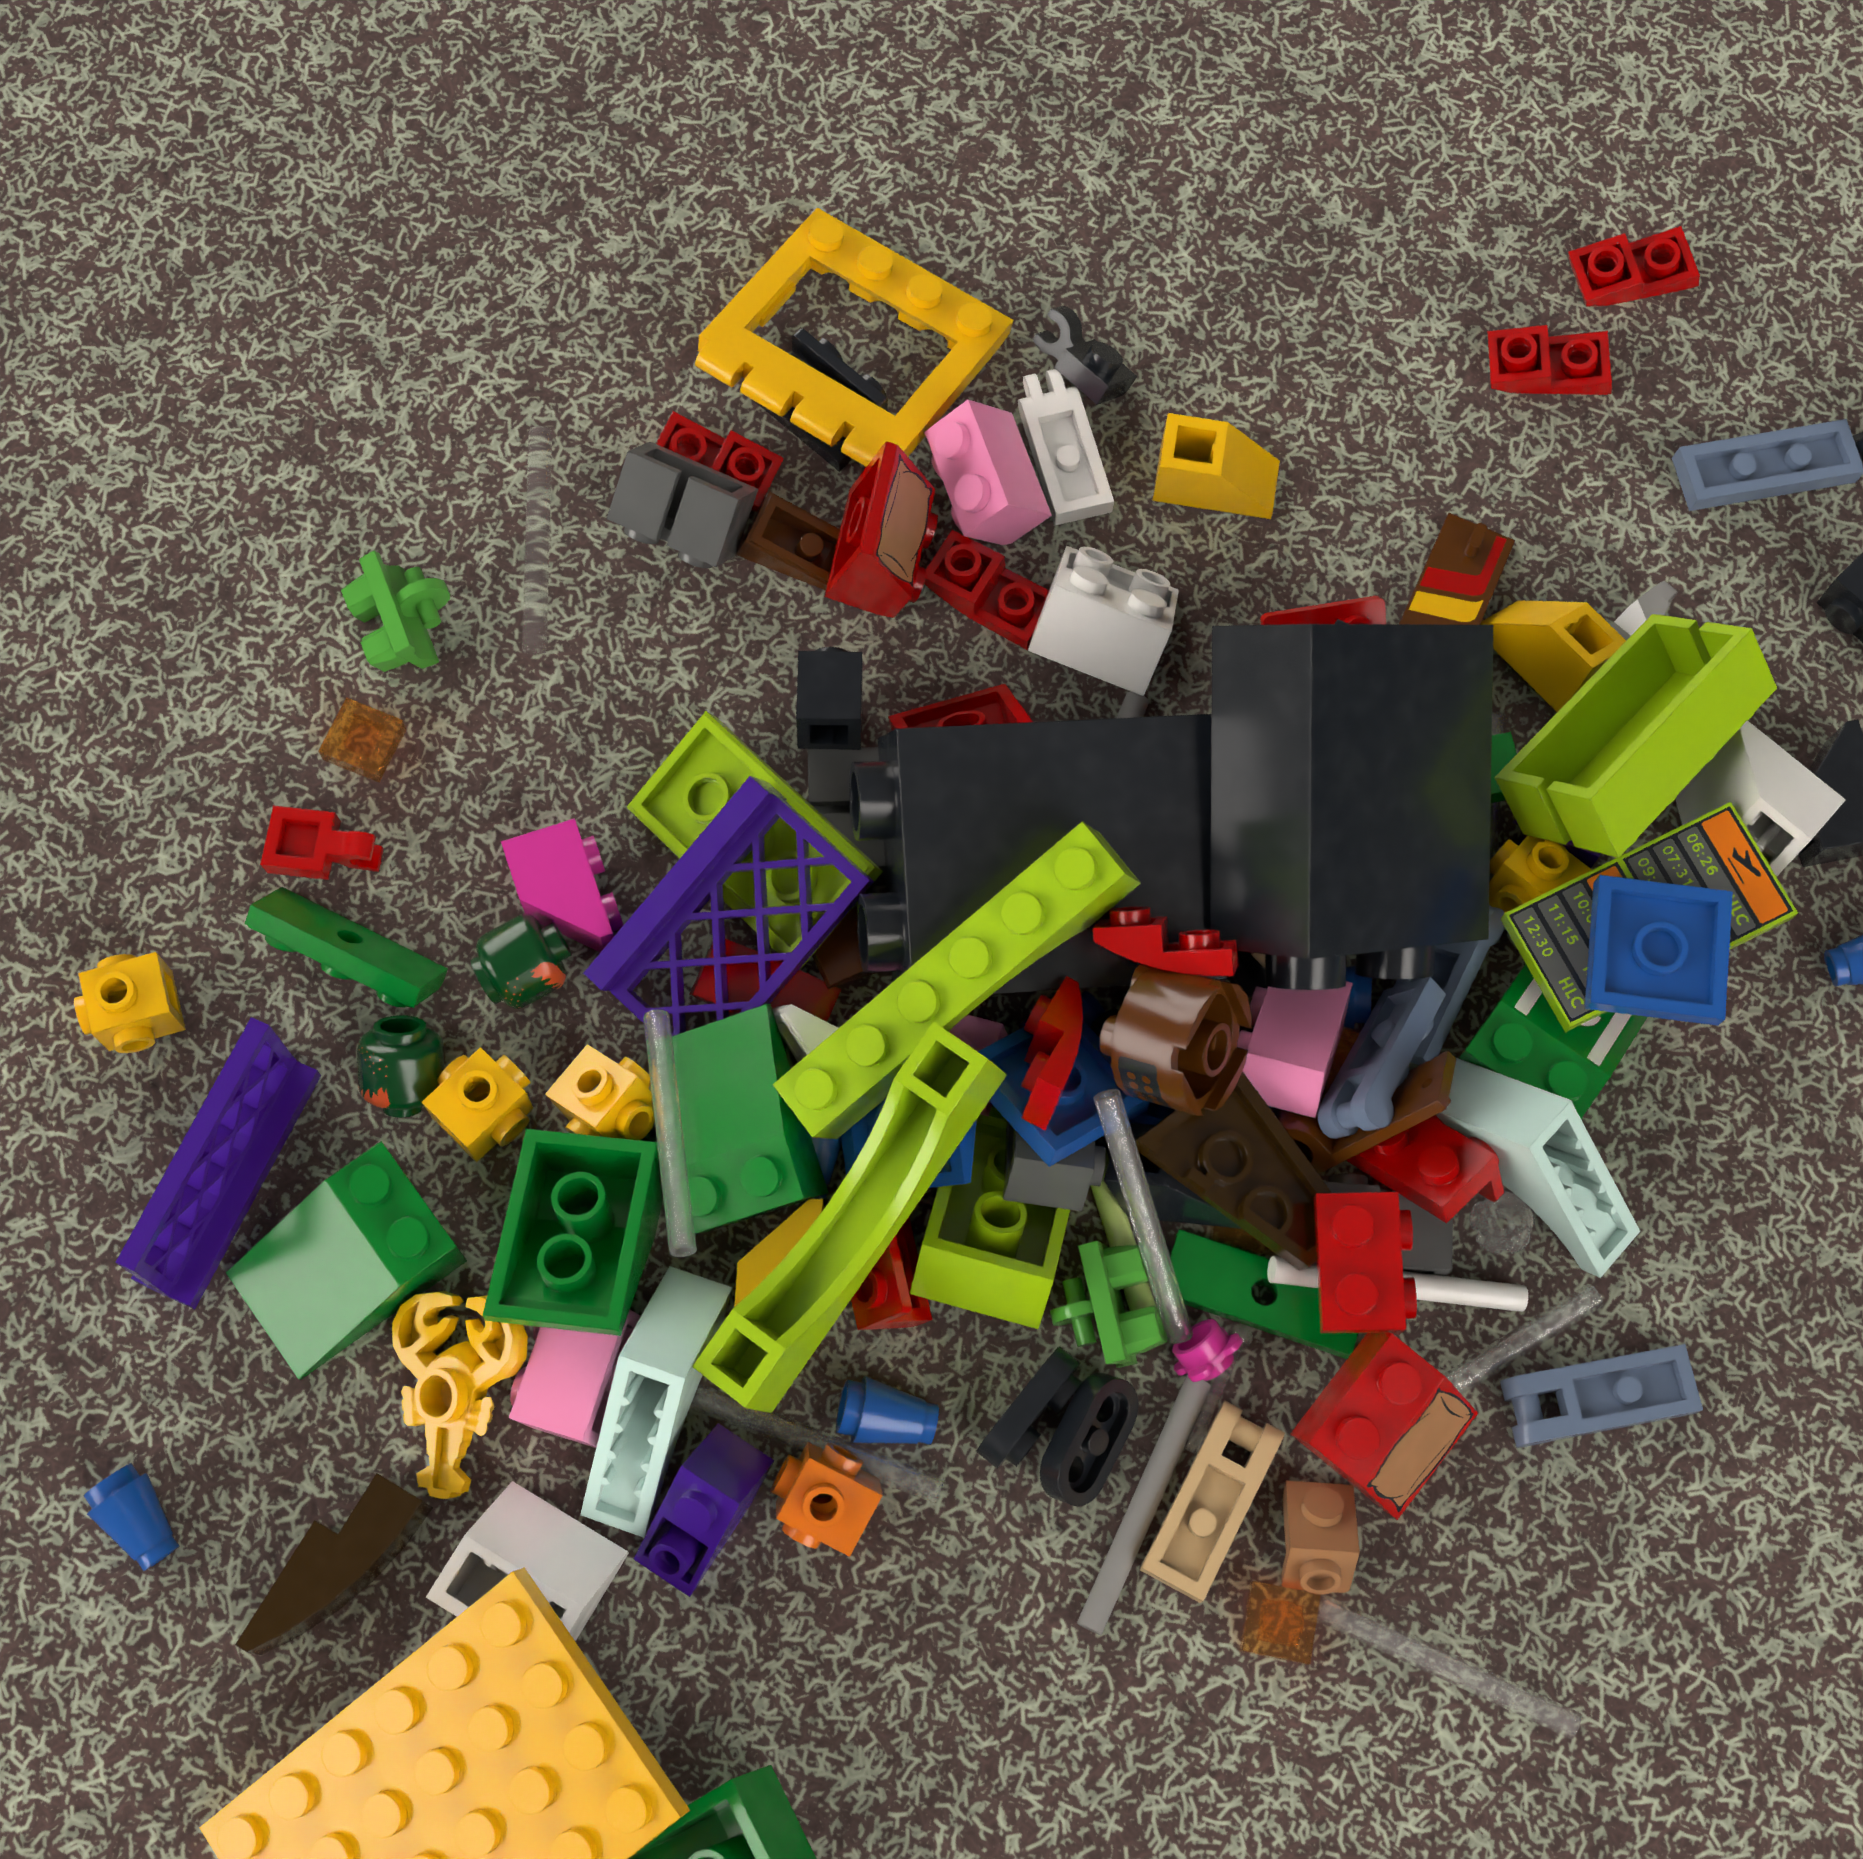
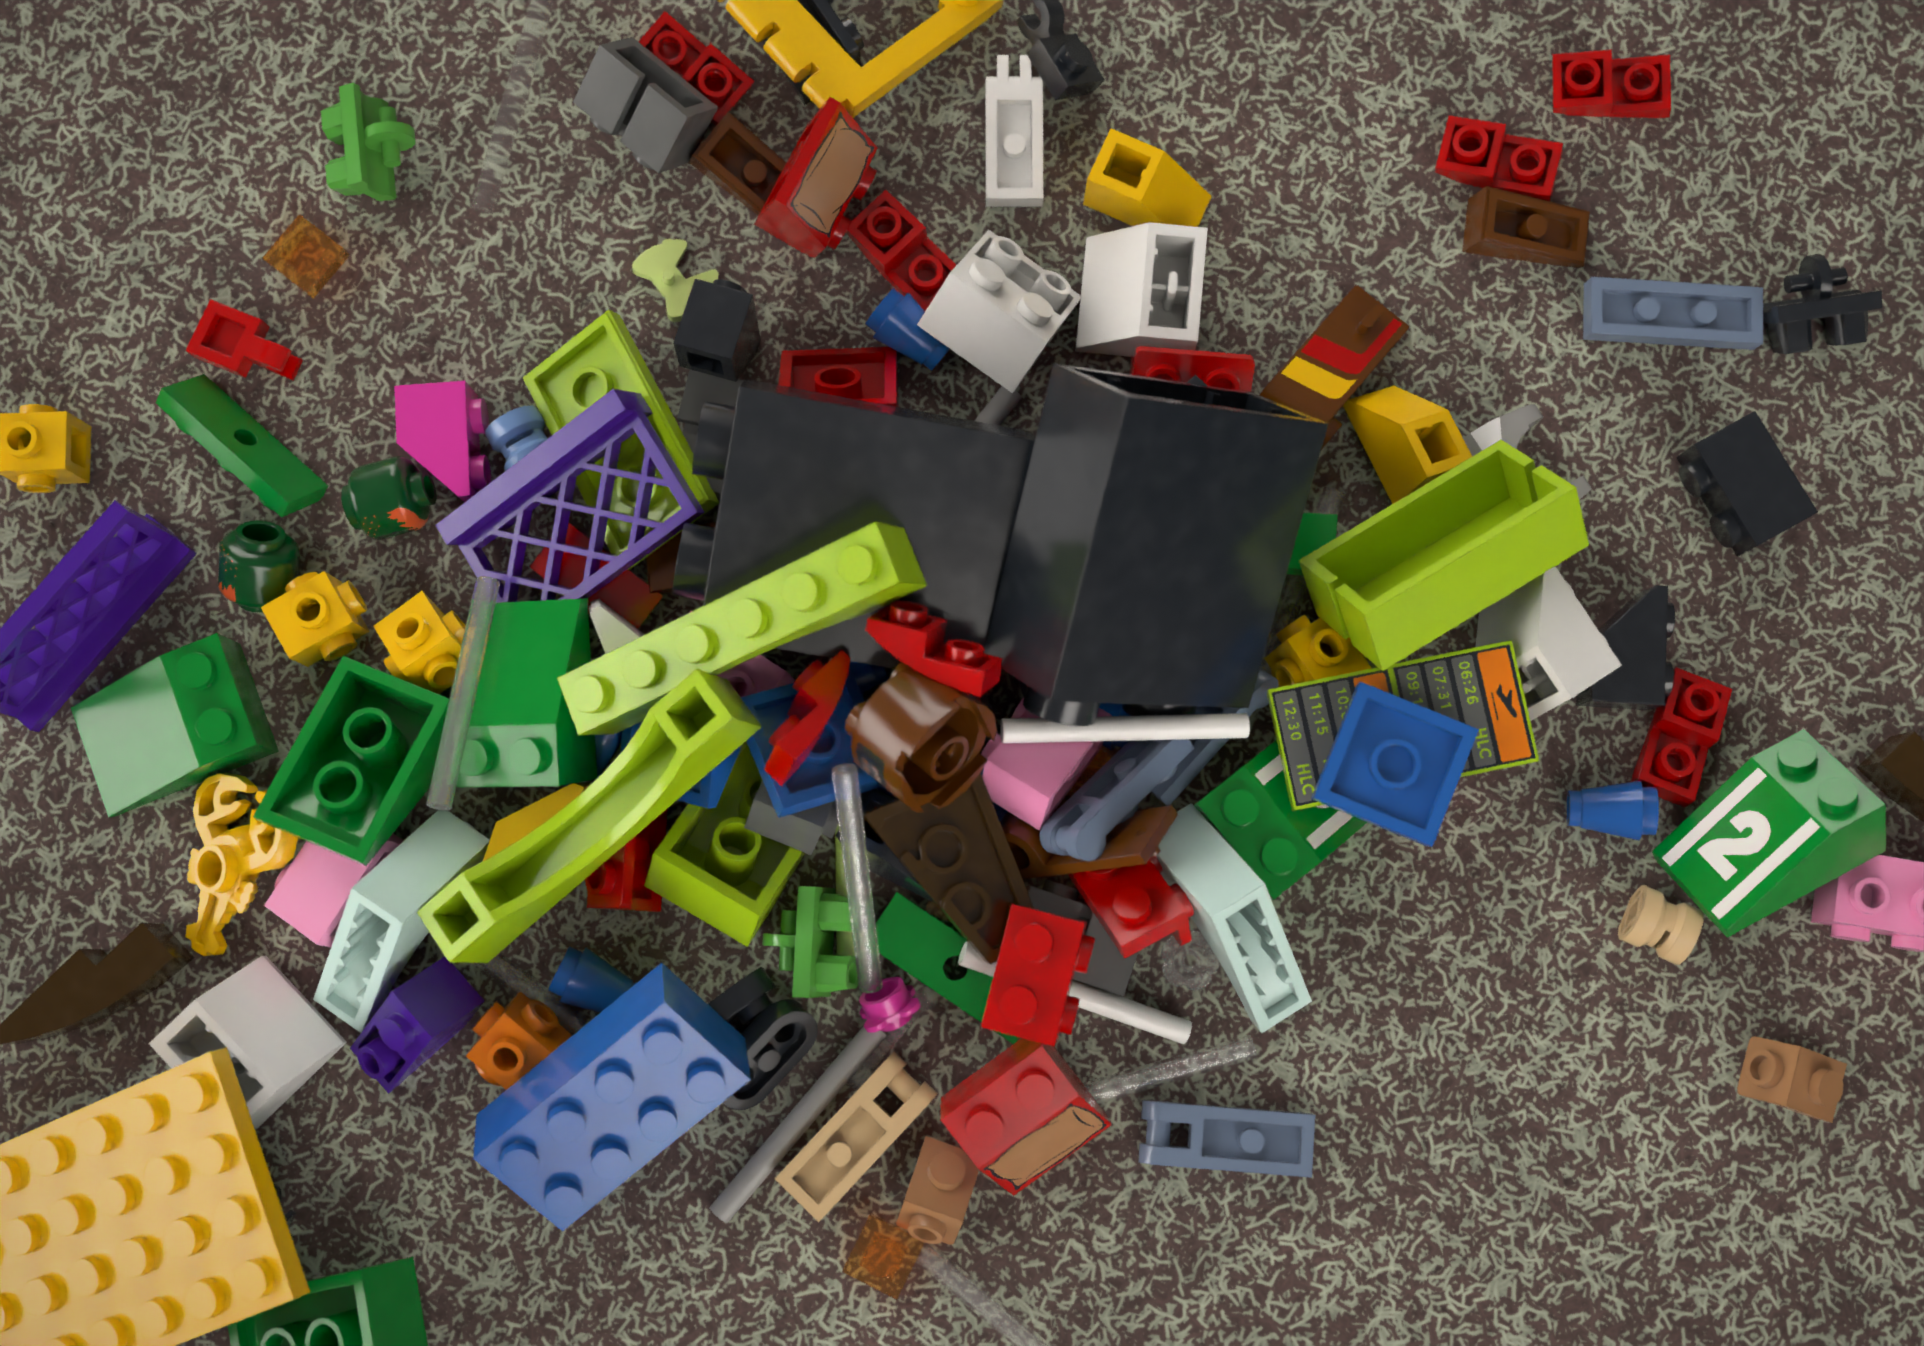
camera: 20 degrees right, 10 degrees up
(640, 864) = (516, 433): none -> medium blue wheel
(768, 685) = (660, 267): none -> yellowish green piece
(949, 1518) = (611, 1098): none -> brick
(987, 473) = (932, 143): bright pink brick -> none
(1007, 662) = (897, 327): none -> blue cone
(1242, 561) = (1142, 289): none -> white slope
(1375, 987) = (1127, 728): none -> white bar
(1595, 420) = (1525, 229): none -> reddish brown slope

